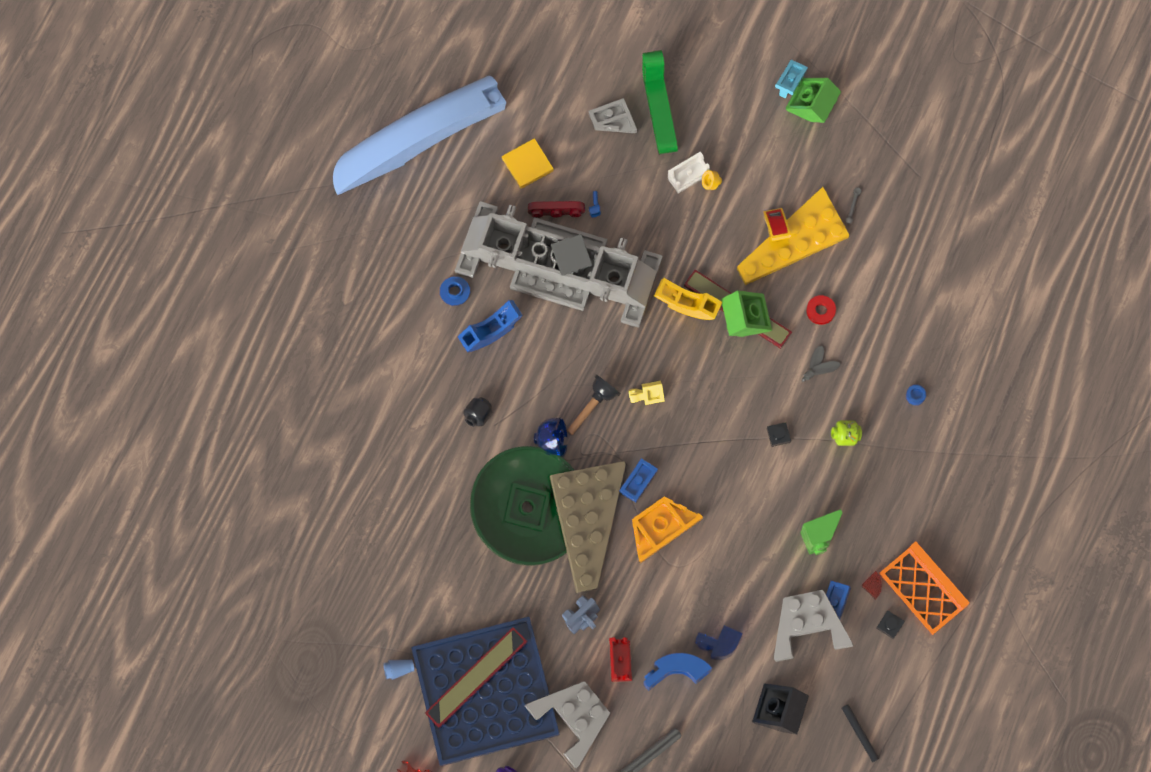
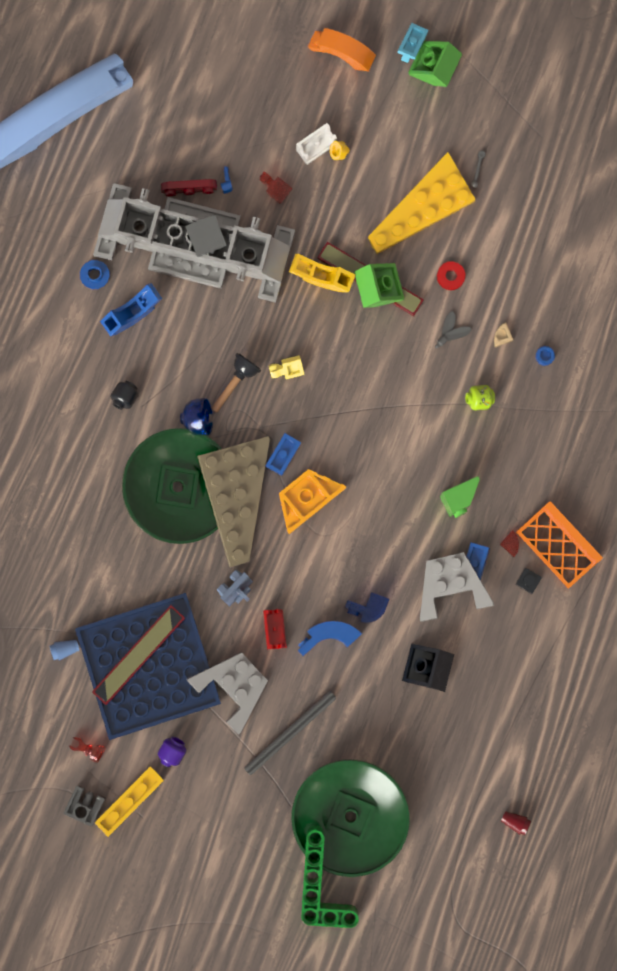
camera: 10 degrees left, 10 degrees up
(527, 163) = (158, 141): yellow tile -> none
(613, 118) = (239, 91): light grey wing -> none
(646, 215) = (276, 188): none -> clear red plate
(658, 101) = (283, 73): green beam -> none
(721, 78) = (344, 47): none -> orange arch
(777, 224) = (405, 193): slope -> none
(778, 434) = (415, 401): black plate -> none
(860, 733) = (503, 685): black bar -> none
(872, 372) = (502, 335): none -> tan tile

